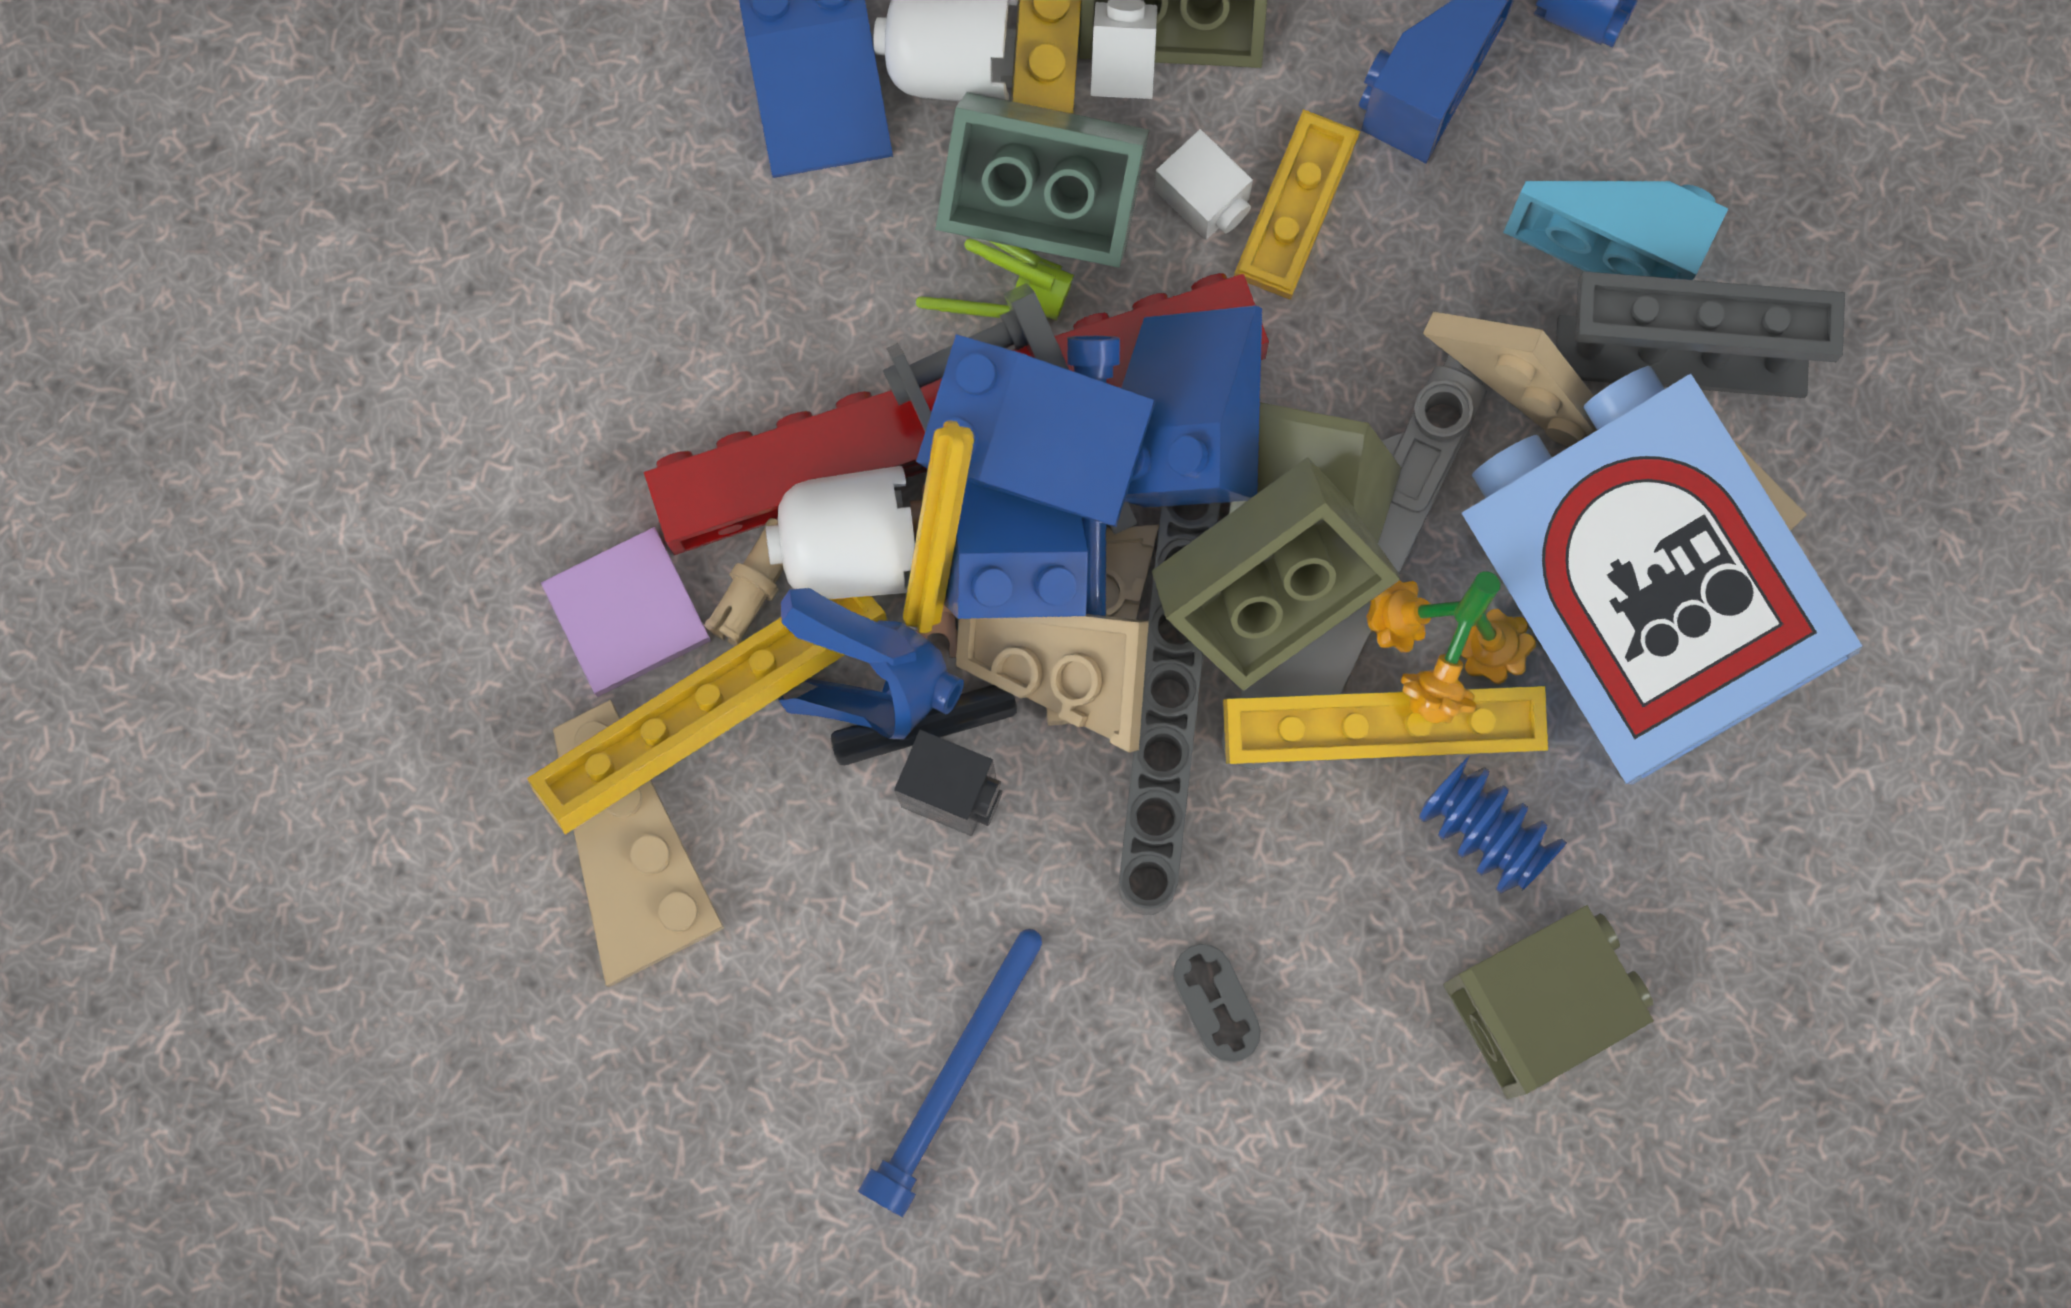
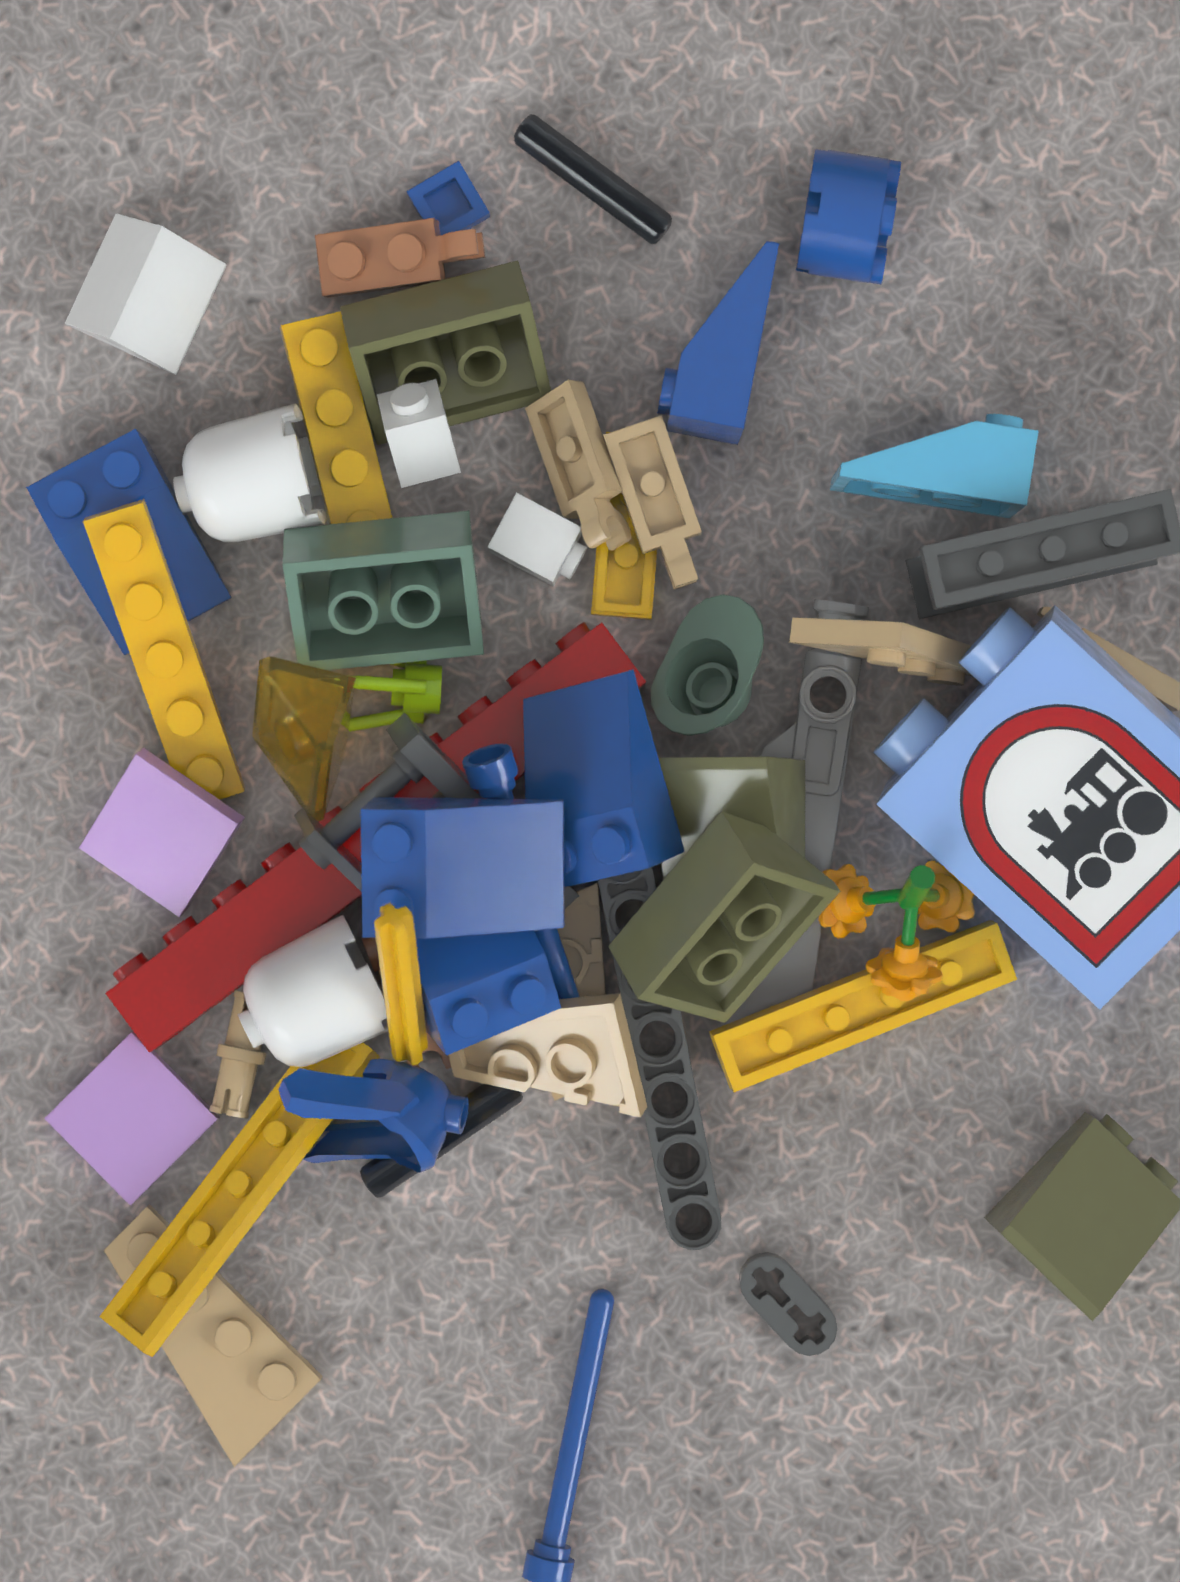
camera: 25 degrees left, 10 degrees up
(750, 344) = (161, 832): none -> lavender tile
(812, 176) = (163, 647): none -> yellow plate
(924, 278) = (303, 727): none -> clear yellow slope
(948, 784) = (485, 1195): black brick -> none
(1269, 124) = (579, 463): none -> tan plate
(1333, 176) = (656, 495): none -> tan plate
(1334, 351) = (709, 667): none -> sand green piece
(1490, 828) = (988, 1068): blue piece -> none

